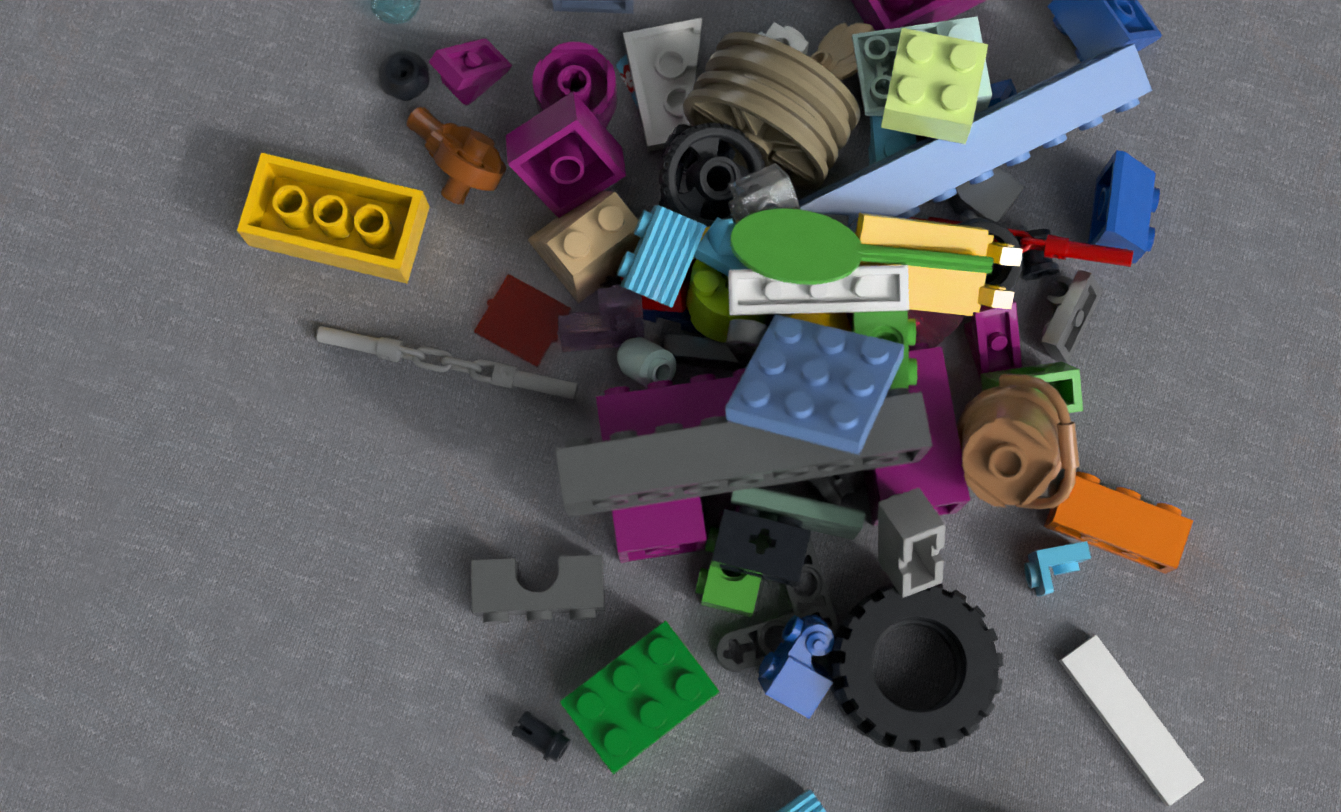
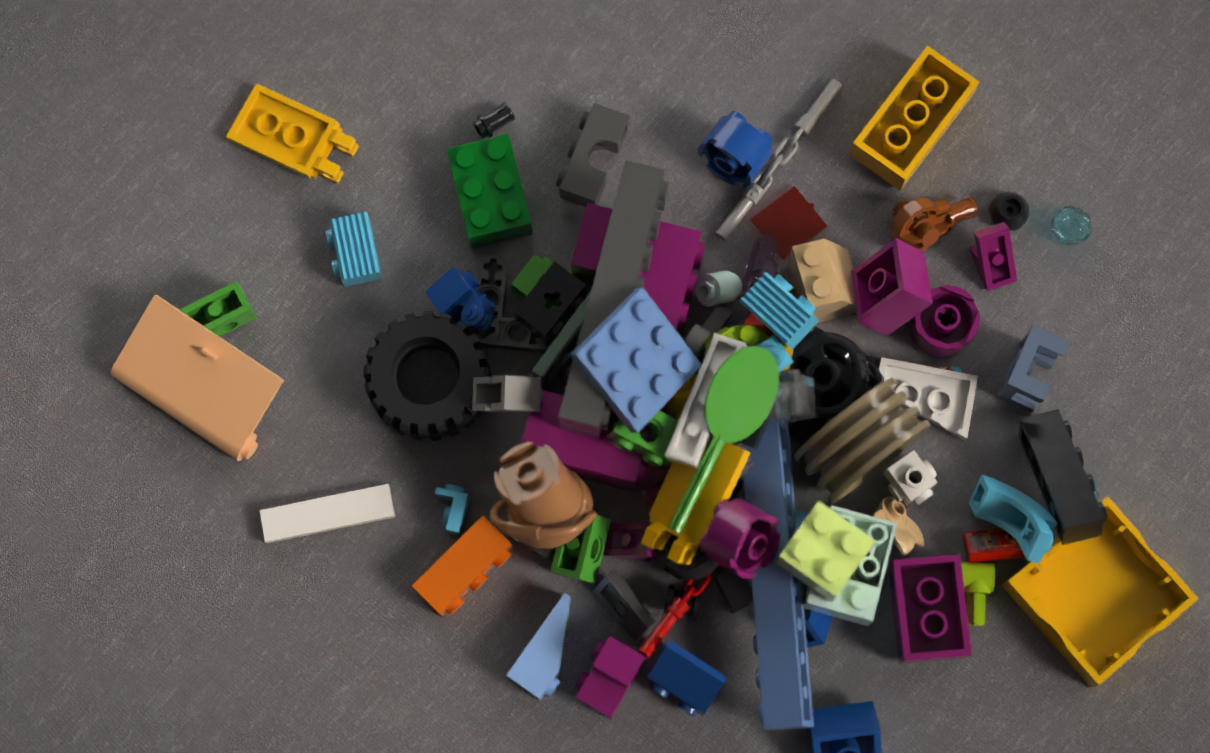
camera: 115 degrees right, 0 degrees up
(461, 410) = (736, 149): none -> blue brick
(960, 188) = (741, 538): none -> magenta brick
(1162, 295) = (610, 677): none -> magenta brick
(1183, 384) = (542, 658): none -> light blue slope

